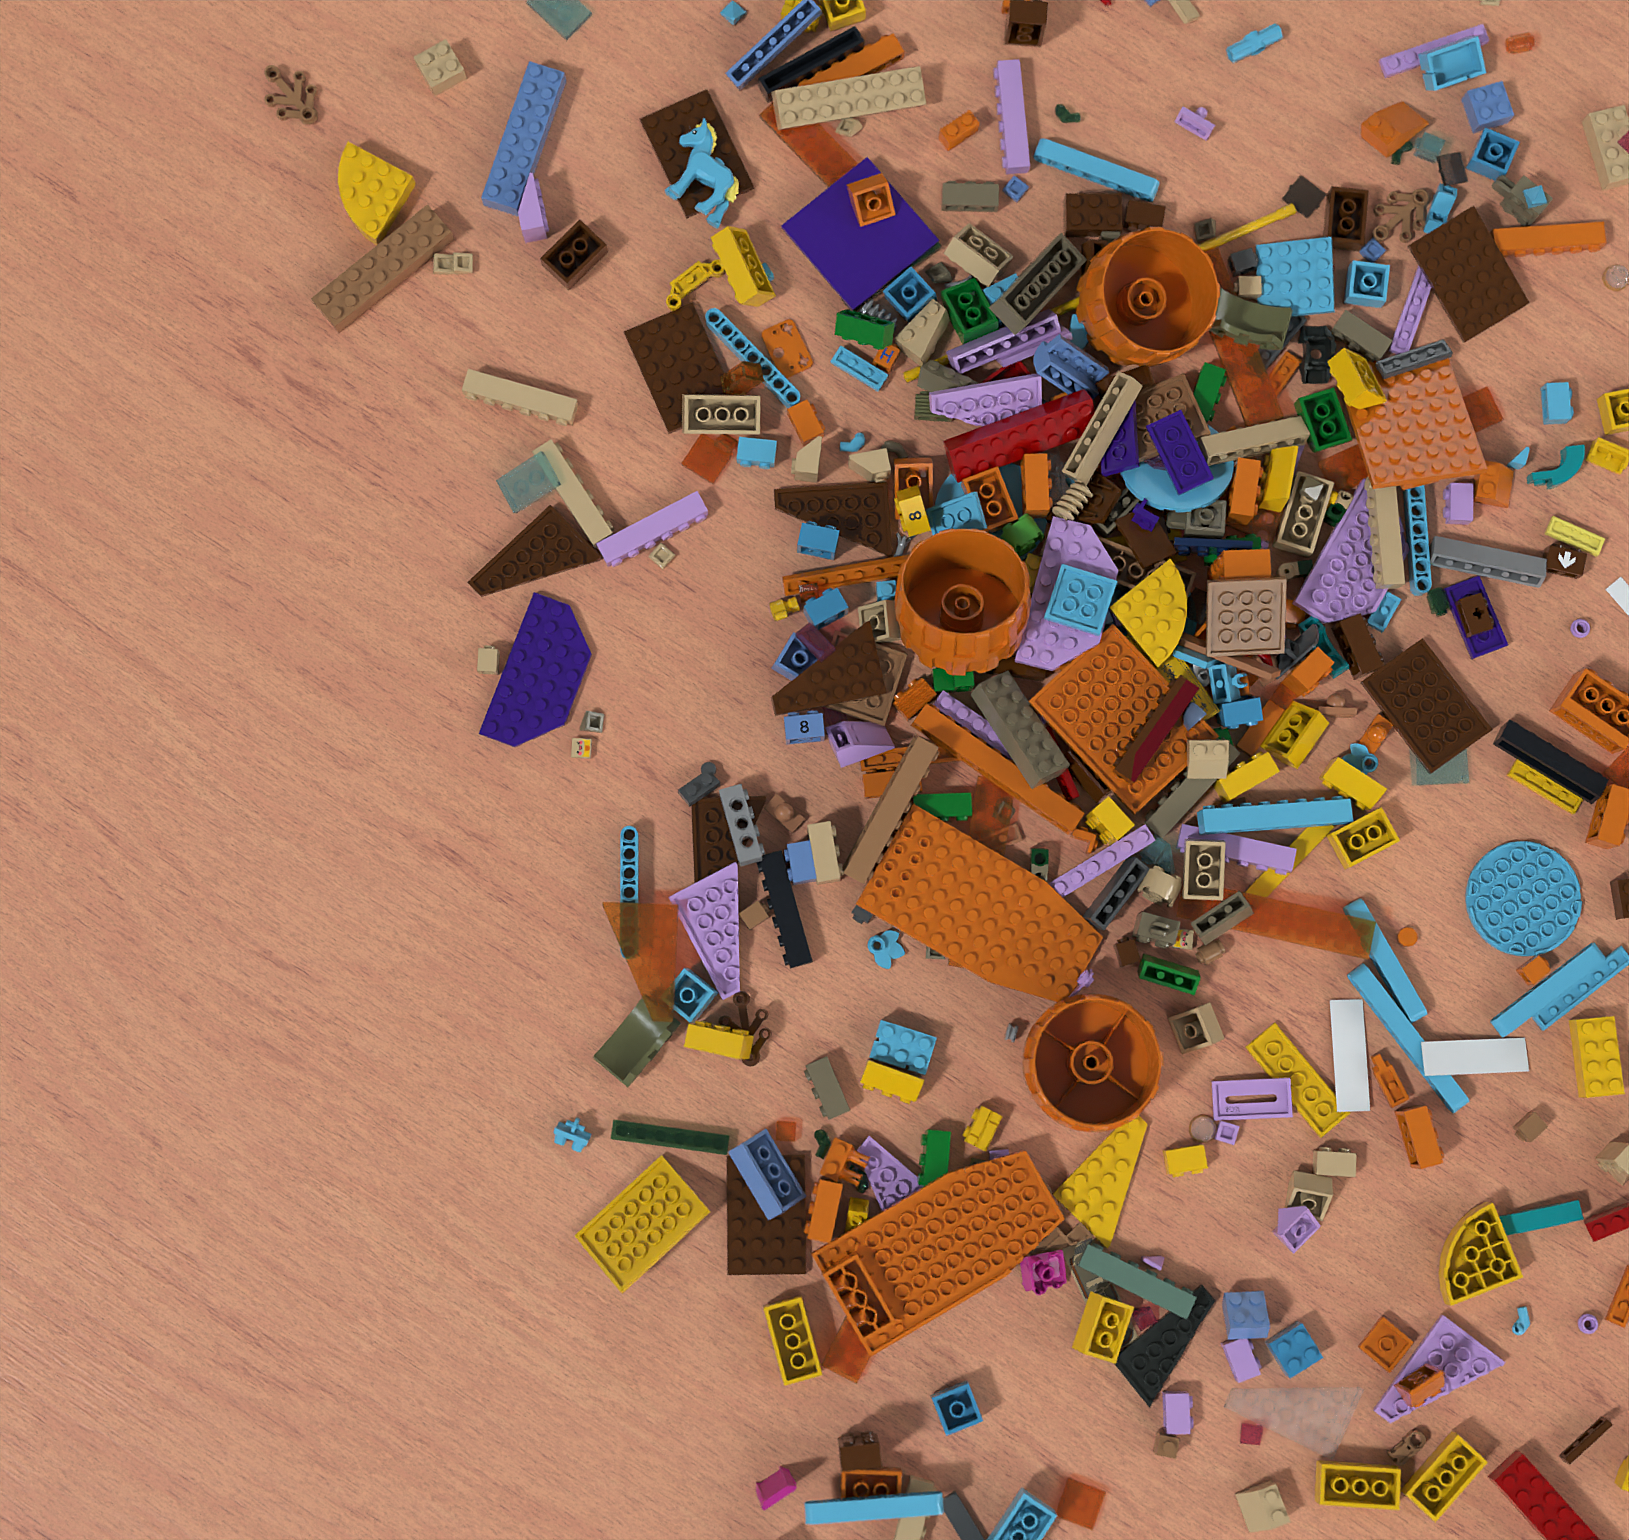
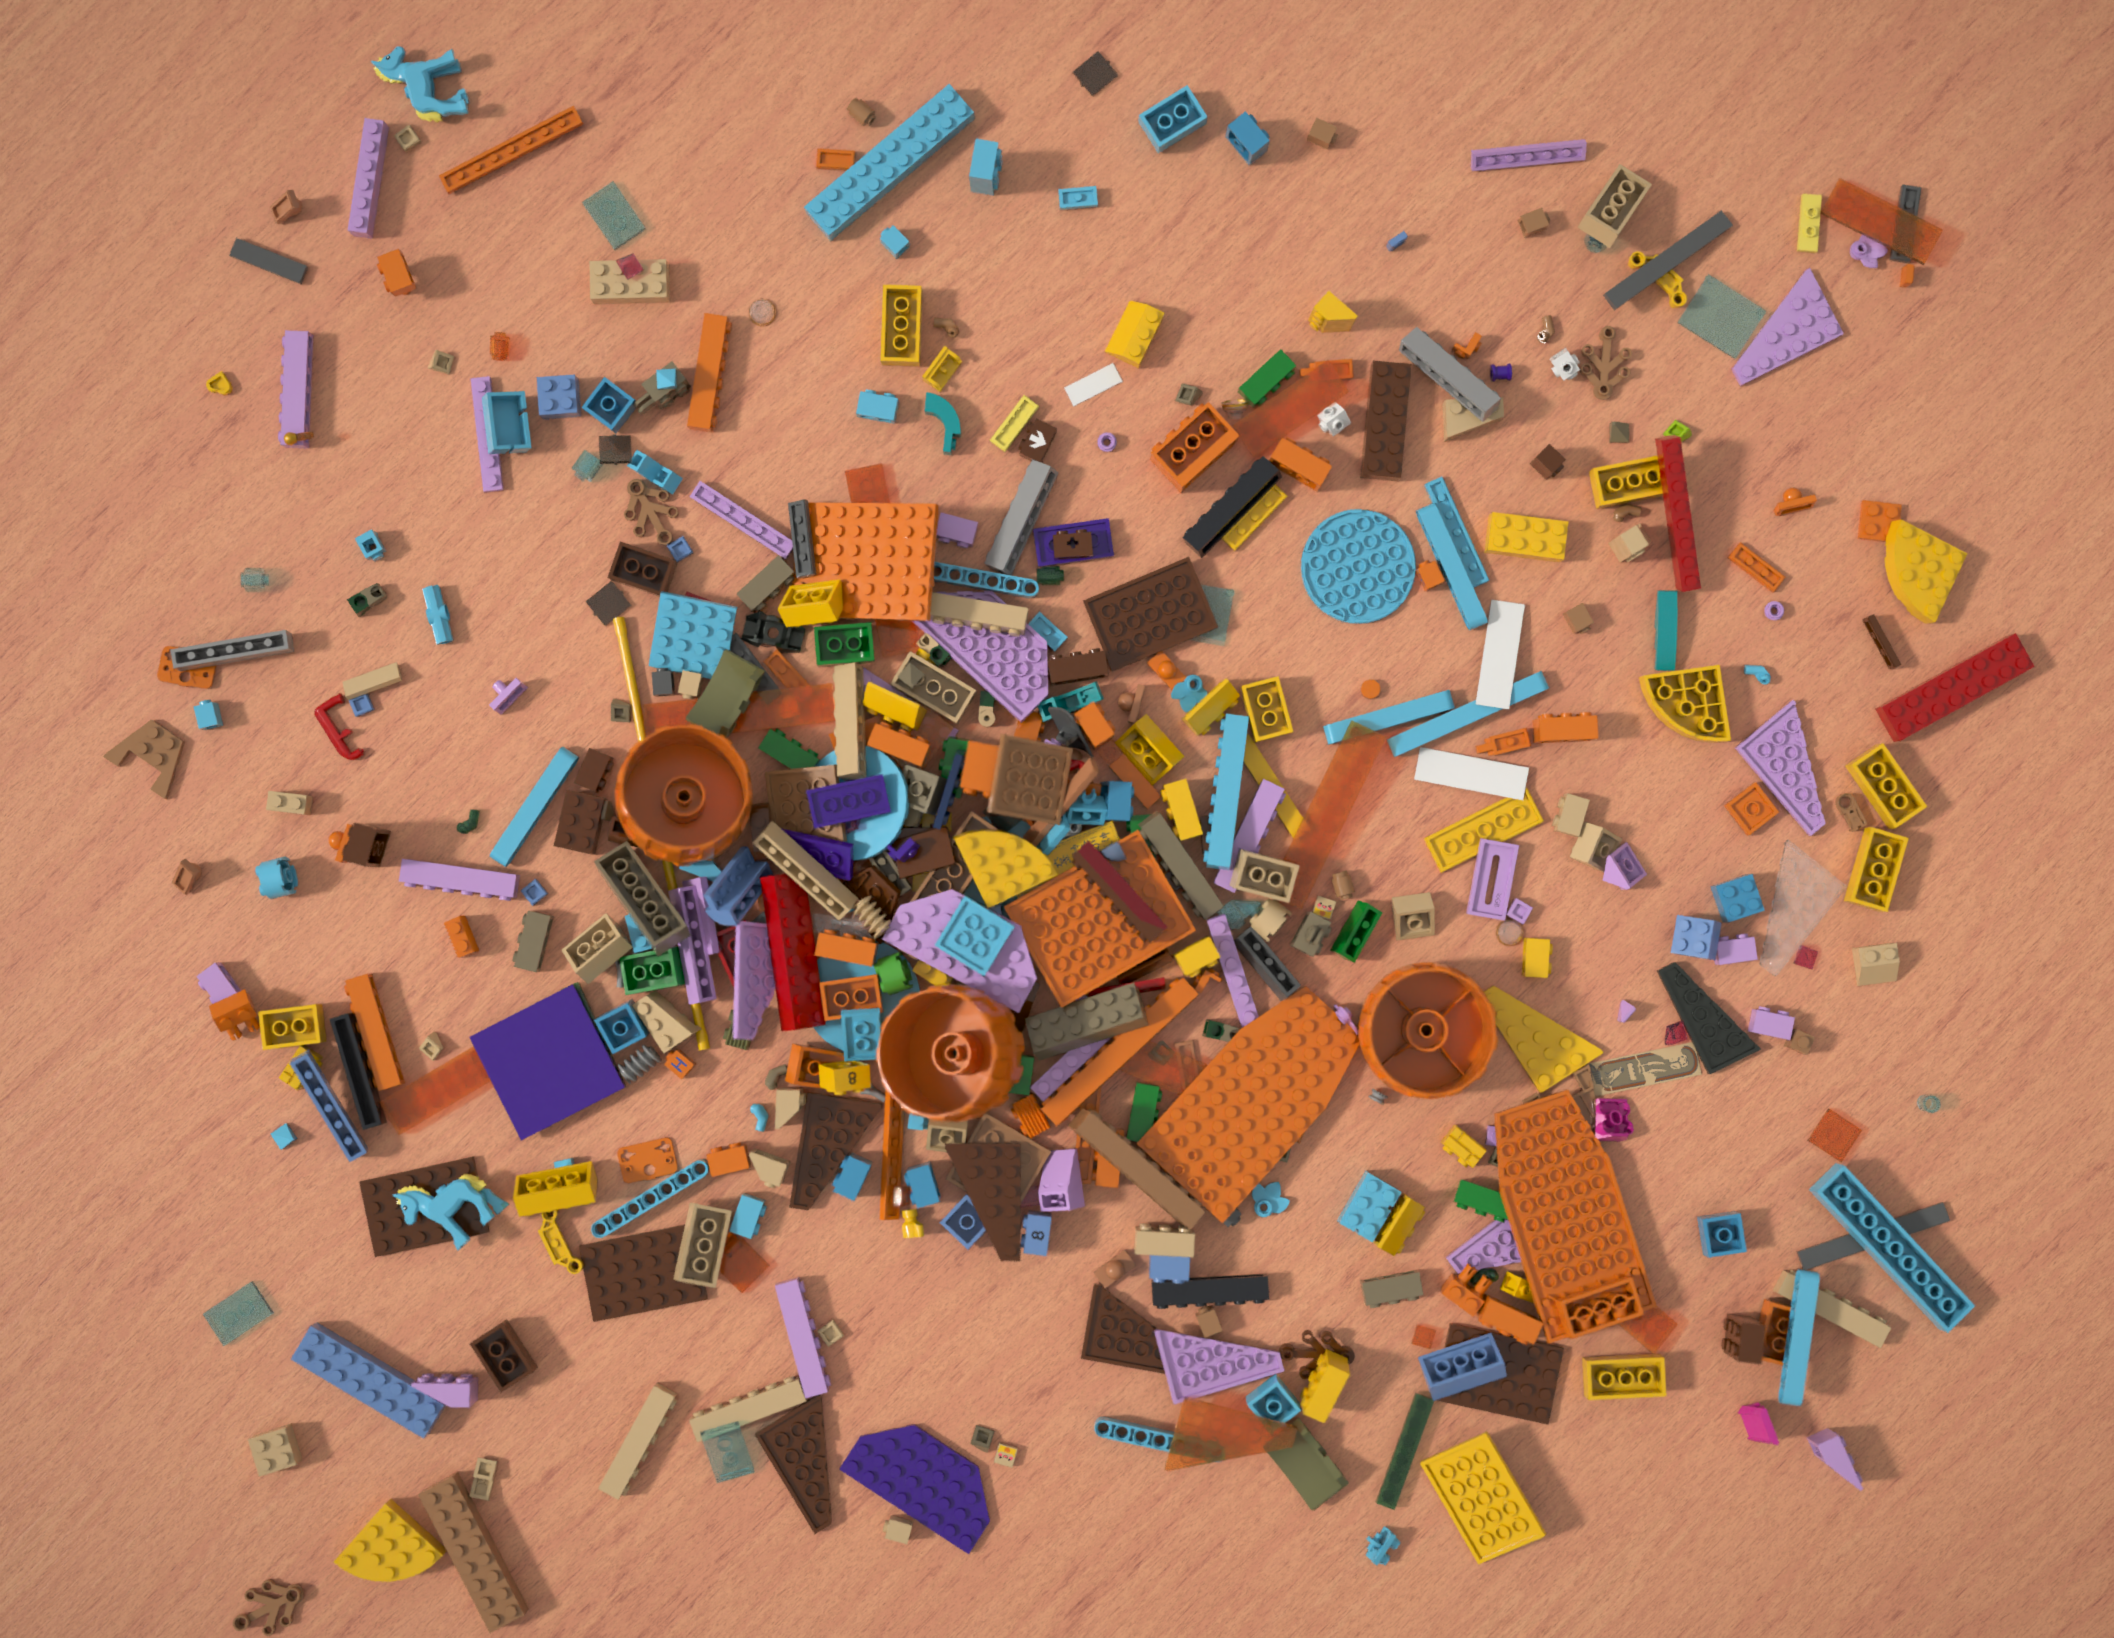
camera: 70 degrees left, 5 degrees up
(701, 785) = (1069, 1345): dark grey hinge -> none
(734, 795) = (1089, 1323): light grey brick -> none
(742, 378) = (671, 1215): clear orange brick -> none
(815, 642) = (955, 1204): clear pink tile -> none
(823, 1142) = (1443, 1302): clear green arm -> none
(848, 98) = (404, 1042): tan brick -> none
(859, 368) = (685, 1093): medium azure plate -> none
(864, 329) = (647, 1081): green brick -> none
(871, 199) = (516, 1044): orange slope -> none
(938, 377) = (717, 1015): dark tan brick -> none
(939, 273) = (605, 990): dark tan slope -> none
(1102, 1327) = (1677, 1076): yellow slope -> none
(1126, 952) = (1325, 966): reddish brown brick -> none
(1137, 1281) = (1641, 1033): sand green brick -> none
(1207, 759) = (1158, 848): tan slope -> none
(1222, 918) = (1315, 869): dark tan brick -> none
(1366, 284) = (714, 565): medium azure brick -> none
(1392, 128) = (558, 497): orange slope -> none
(1396, 156) = (580, 493): clear green arm -> none
(1420, 1385) = (1798, 789): orange slope -> none
(1468, 274) = (727, 461): reddish brown plate -> none
(1494, 485) = (945, 490): orange slope -> none
(1520, 460) = (926, 458): medium azure slope -> none

